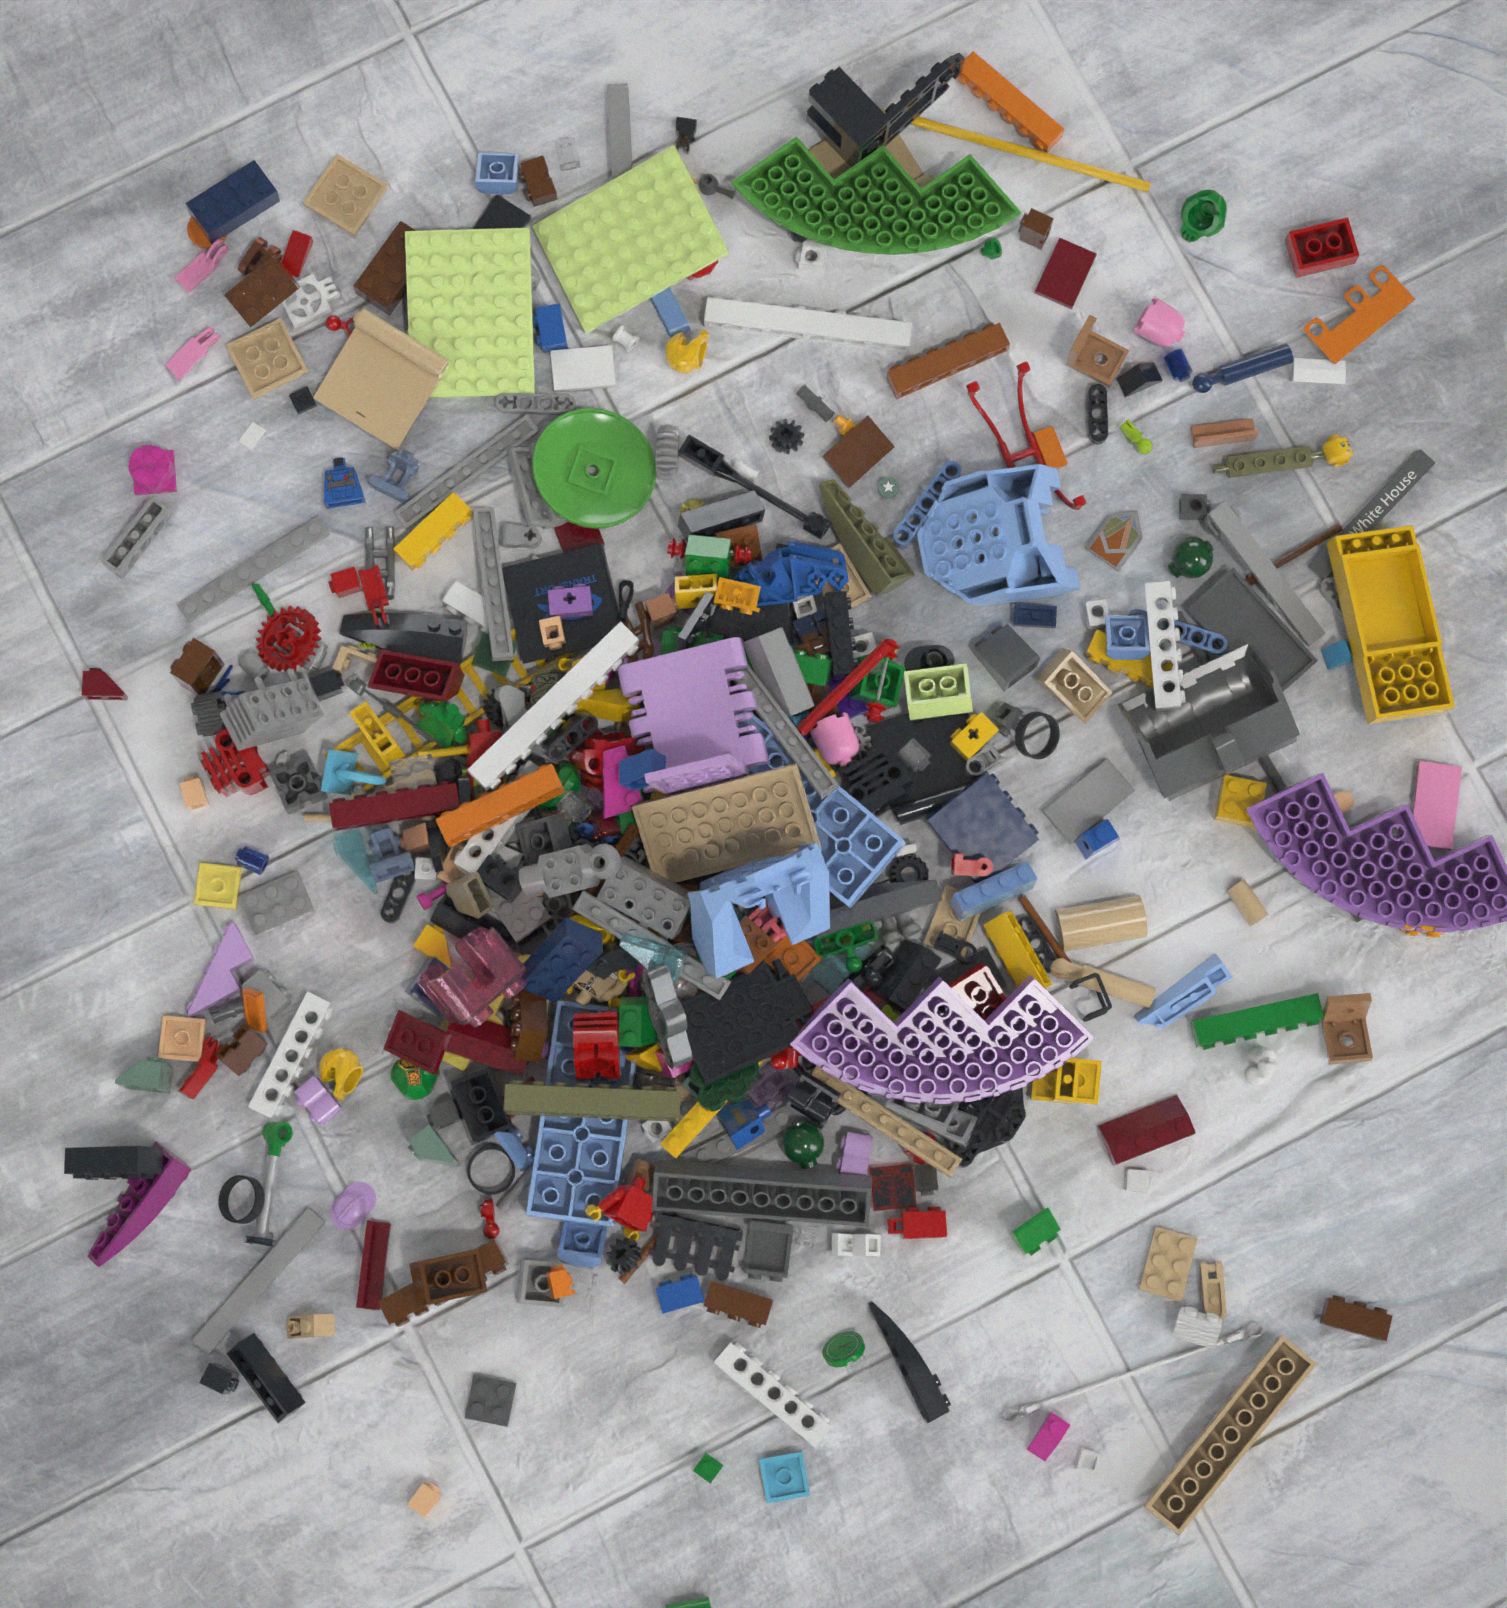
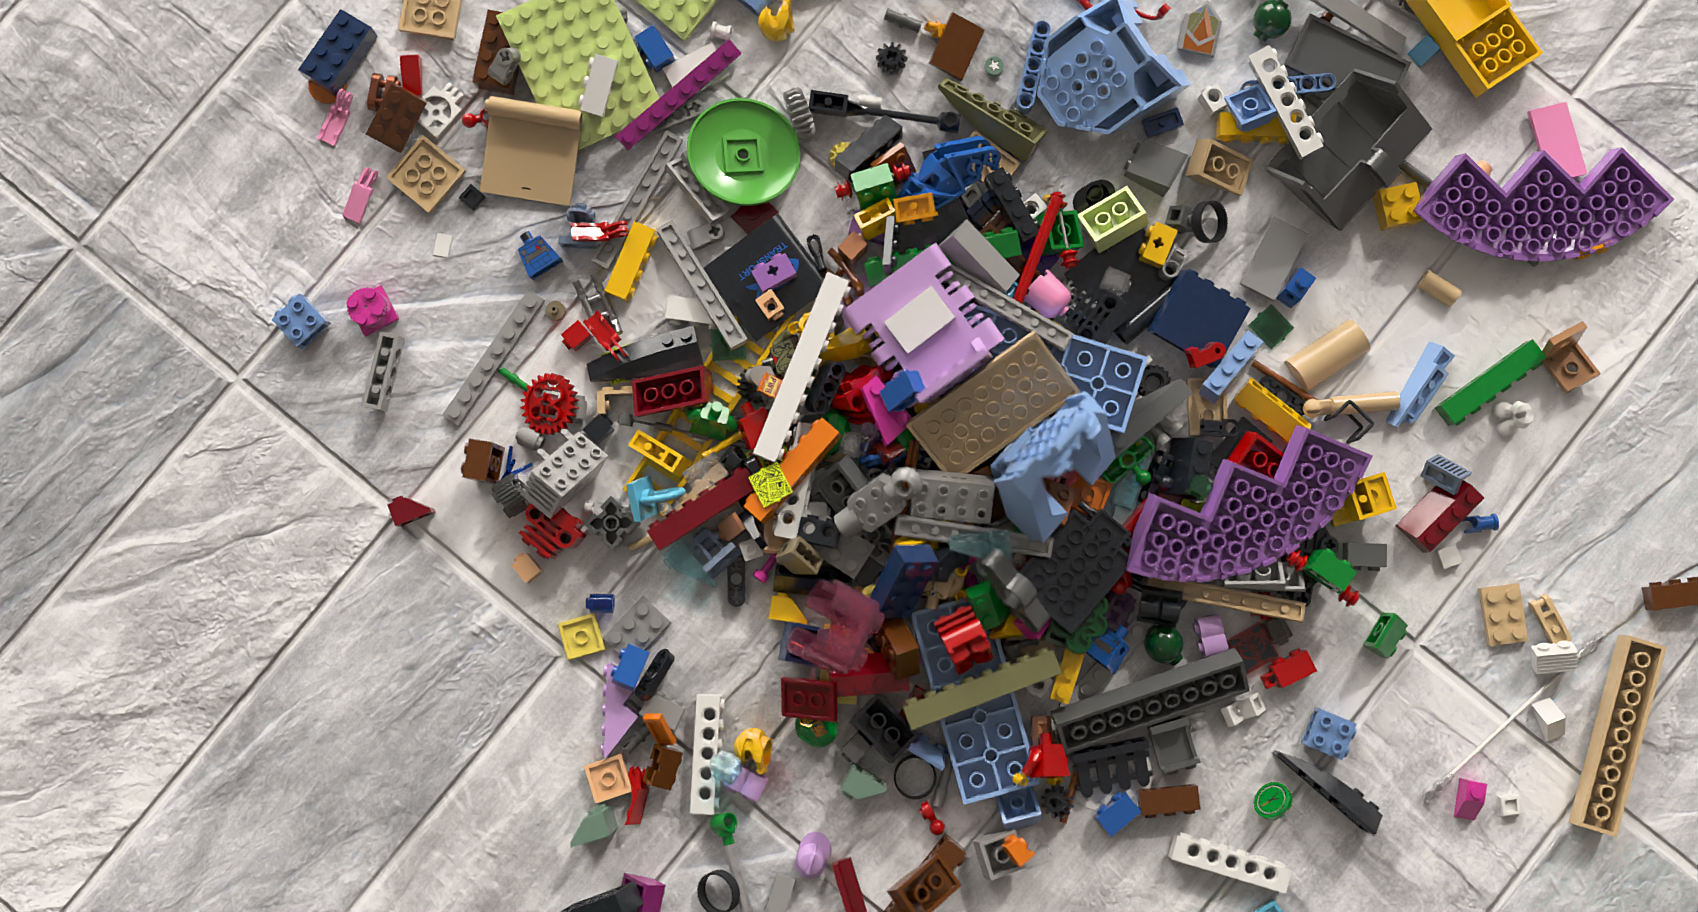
camera: 20 degrees left, 5 degrees up
(77, 452) = (300, 321): none -> medium blue brick
(252, 934) = (630, 667): none -> blue piece
(274, 954) = (649, 685): none -> black beam
(304, 1074) = (725, 767): none -> clear light blue brick
(338, 552) = (559, 313): none -> dark tan tile
(392, 283) = (503, 68): none -> light grey piece
(412, 487) = (598, 231): none -> arm
(471, 809) = (770, 485): none -> neon yellow piece
(476, 342) = (598, 85): none -> white brick
(513, 710) = (769, 385): none -> tile
(554, 384) = (678, 95): none -> magenta plate
(690, 706) = (919, 319): none -> white tile
(904, 995) = (1199, 486): none -> clear green plate
(932, 1307) = (1329, 733): none -> medium blue brick
(998, 1136) = (1328, 571): none -> green brick
(1049, 1142) = (1365, 555): none -> dark grey brick
(1057, 869) = (1271, 326): none -> clear green piece
(1167, 1091) = (1444, 473): none -> sand blue panel
(1168, 1391) = (1549, 718): none -> white slope
(1184, 1160) = (1482, 523): none -> blue piece

